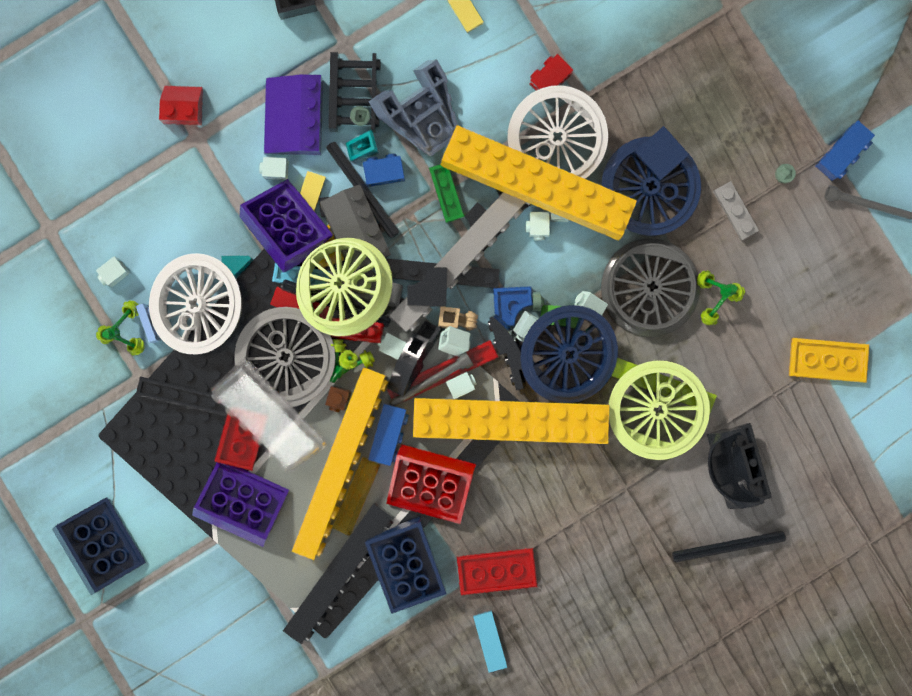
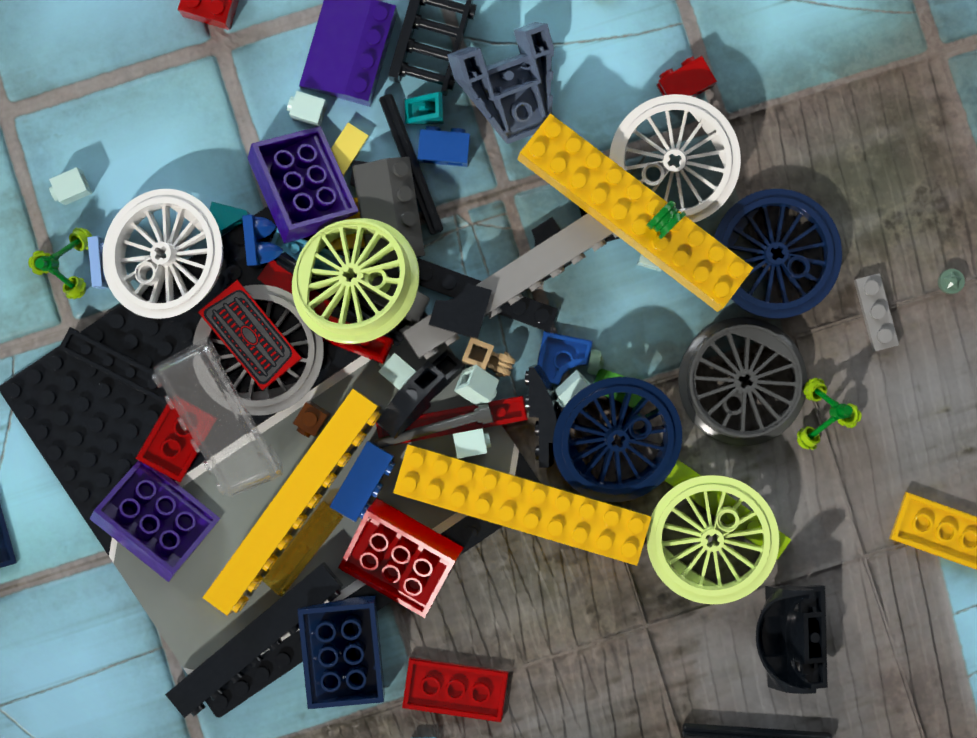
camera: 20 degrees right, 0 degrees up
(264, 284) = (259, 252): none -> blue tile
(276, 347) = (250, 335): none -> tile
(348, 360) = (336, 374): lime plant -> none
(360, 115) = (432, 70): sand green tile -> none
(446, 193) = (515, 196): green plate -> none
(538, 225) = (621, 266): light aqua brick -> none
(563, 181) = (665, 219): none -> green wheel
(591, 301) = (662, 380): light aqua brick -> none
(661, 153) = (800, 215): dark blue tile -> none

